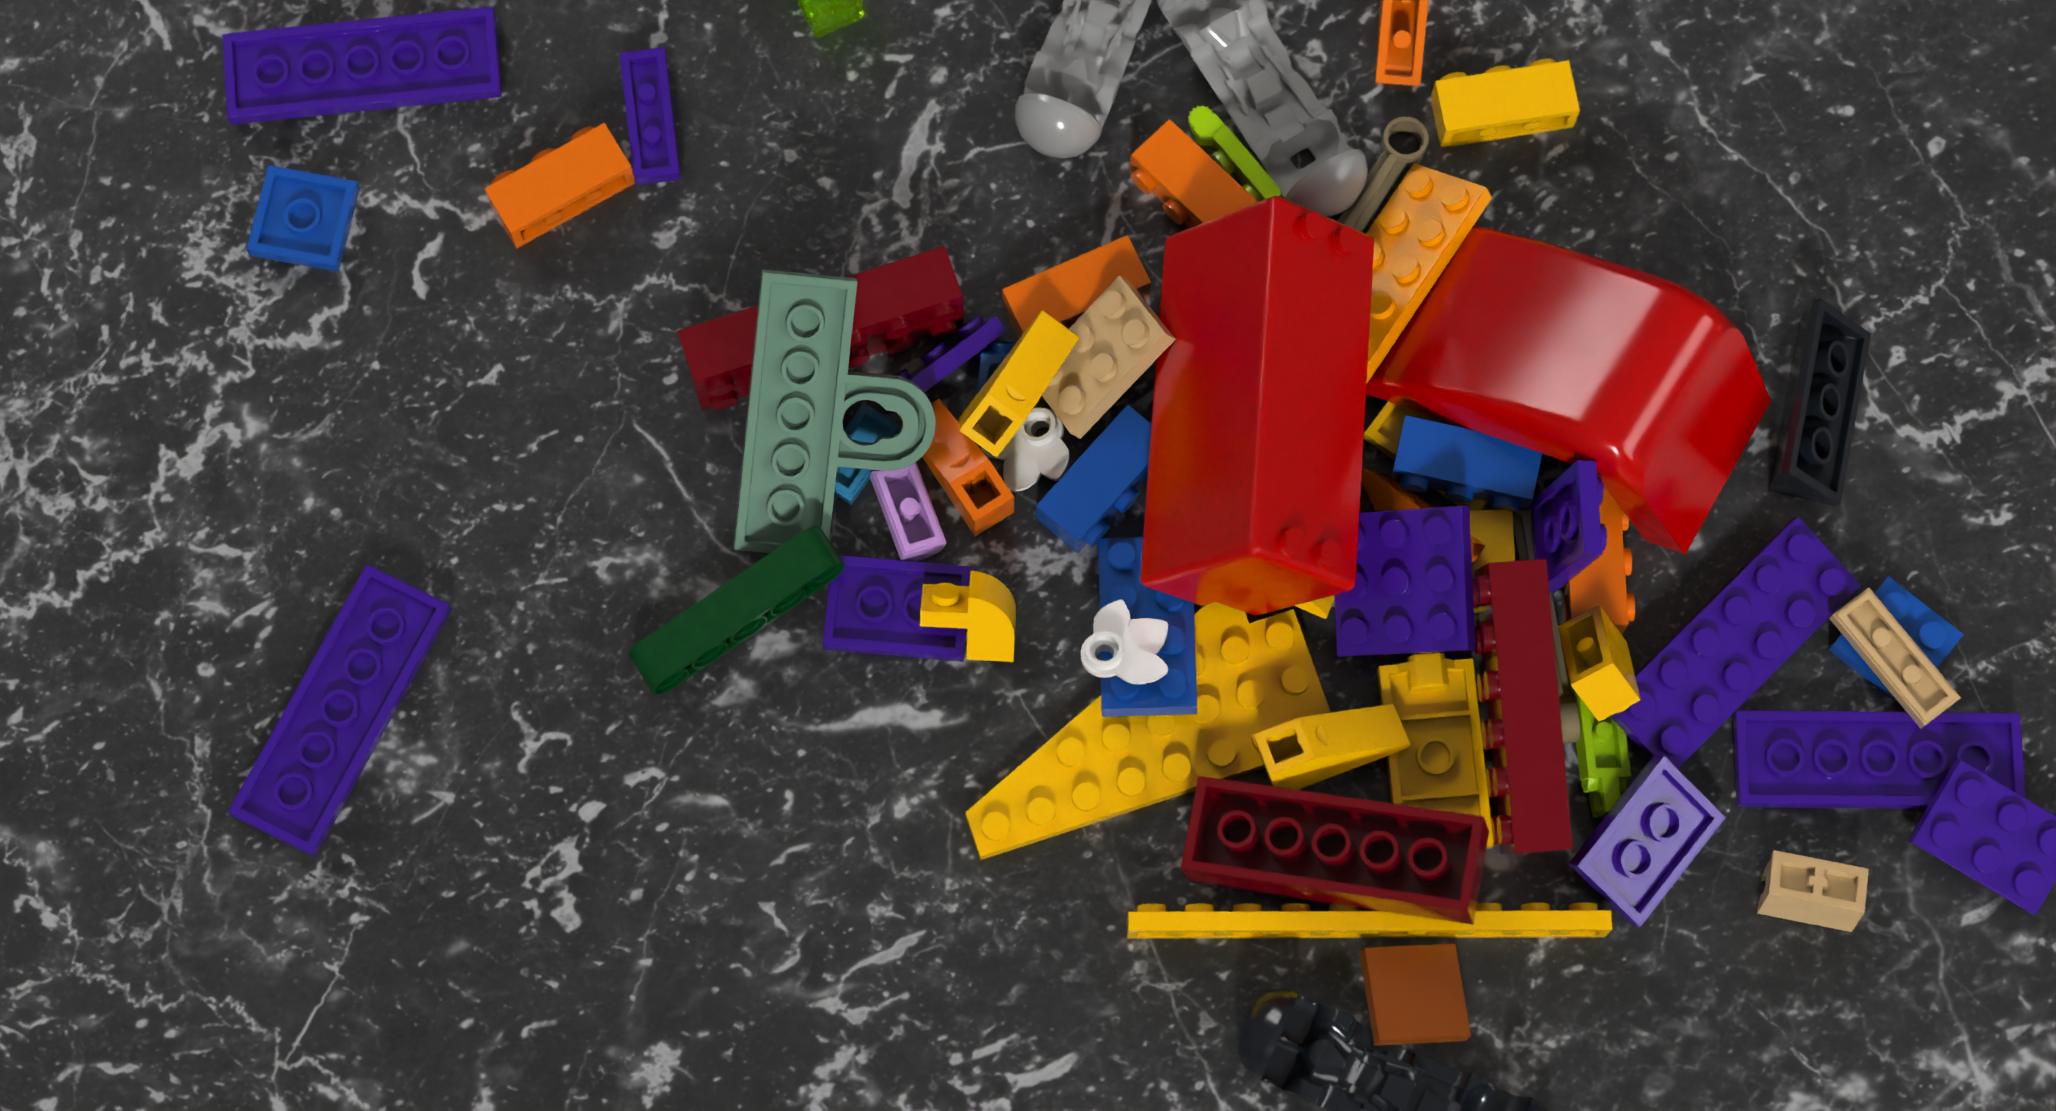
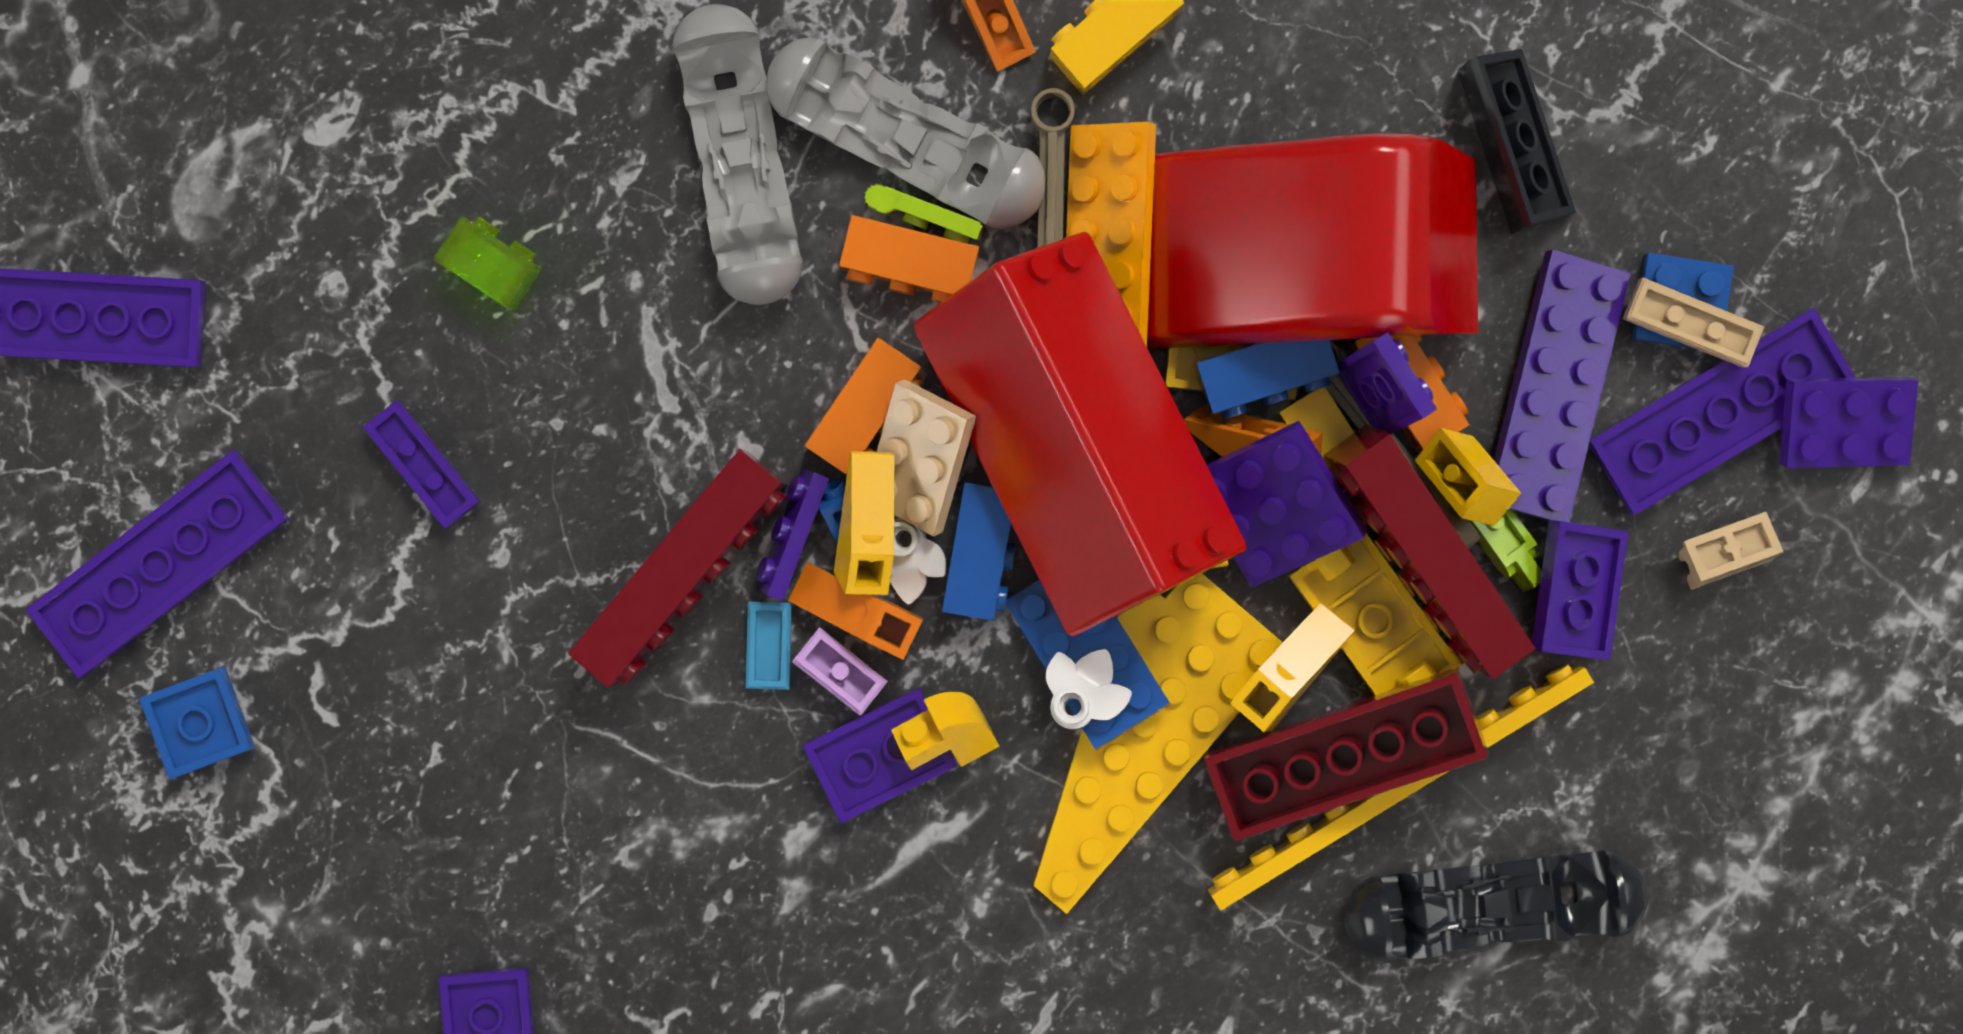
camera: 30 degrees left, 15 degrees up
(559, 184) = (385, 569): orange brick -> none
(736, 610) = (756, 838): dark green beam -> none
(798, 410) = (705, 654): sand green plate -> none
(1415, 994) = (1467, 821): dark orange tile -> none

